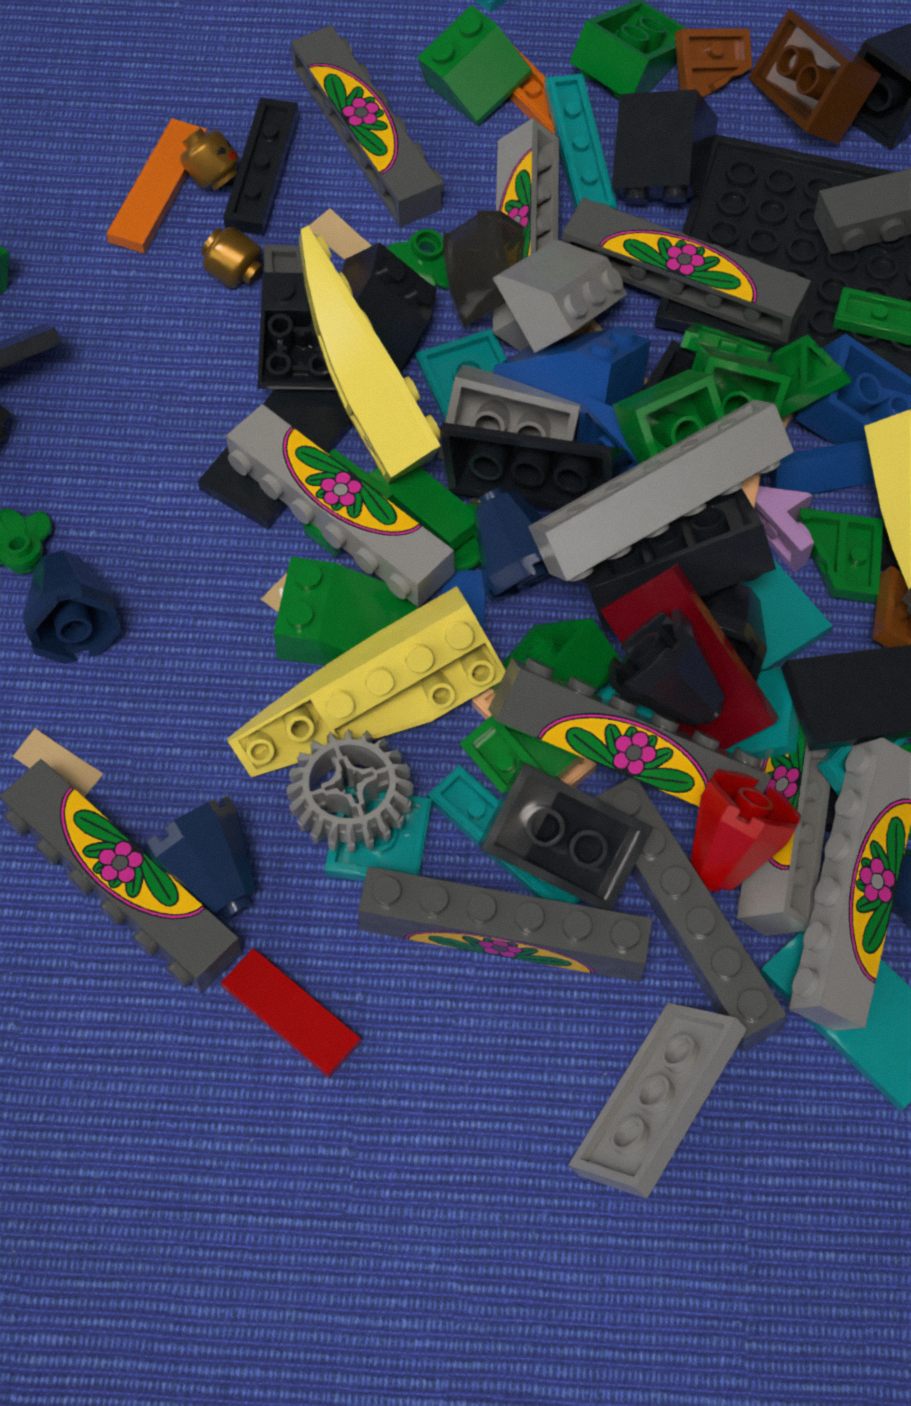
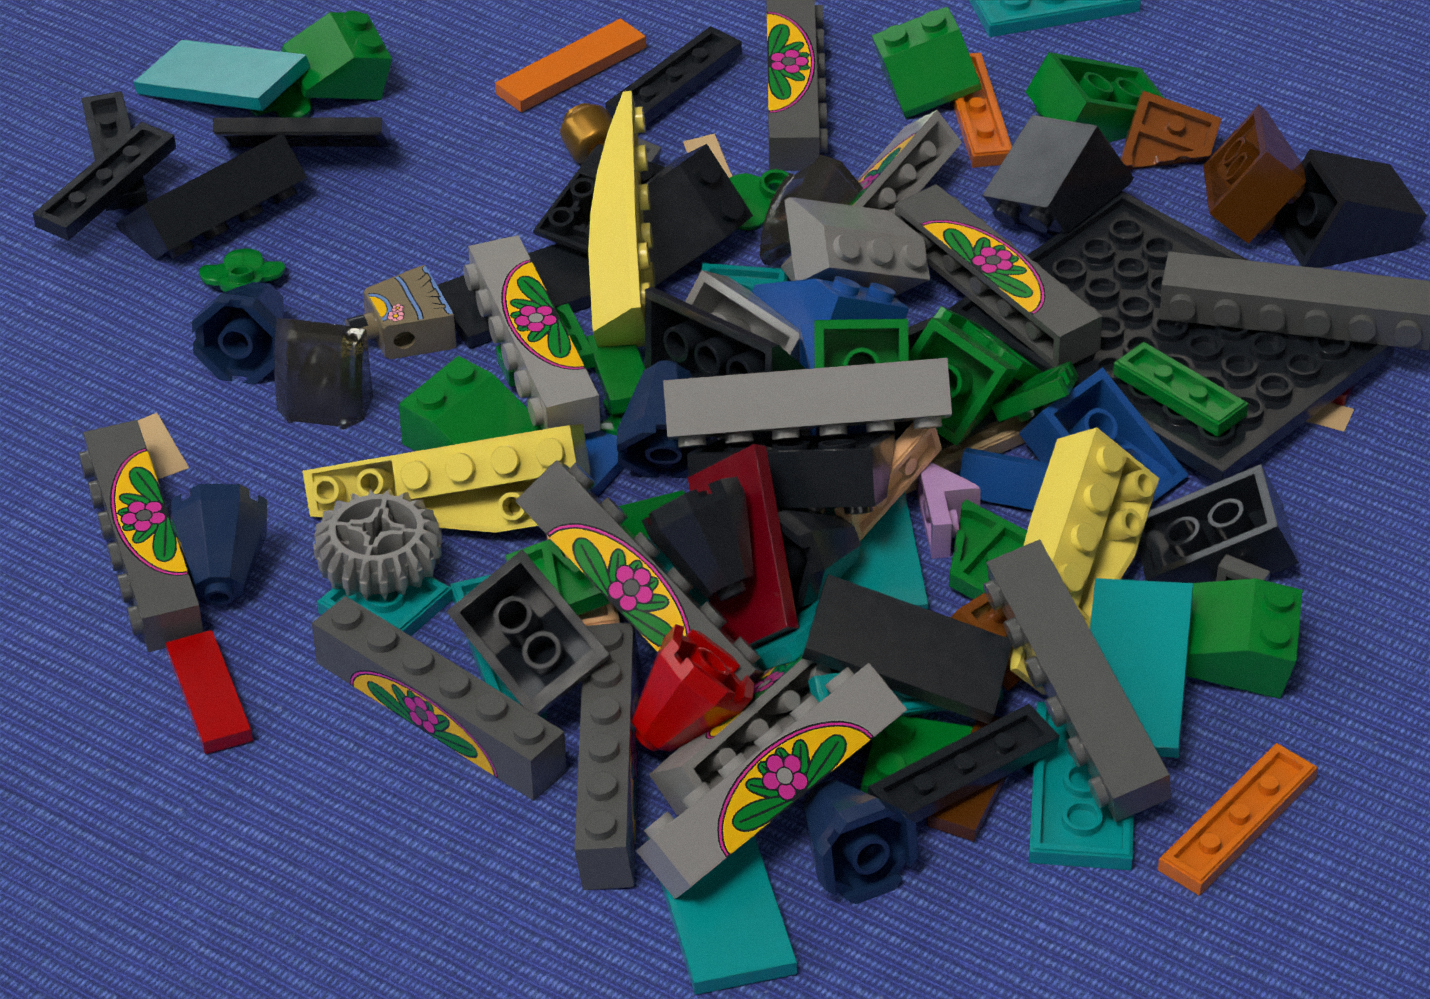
camera: 30 degrees right, 20 degrees down
(174, 628) = (322, 373): none -> clear smoke slope
(199, 525) = (407, 315): none -> dark tan torso
(209, 158) = (625, 54): pearl gold head -> none
(578, 140) = (985, 149): teal tile -> none
(657, 1099) = (453, 876): light grey plate -> none

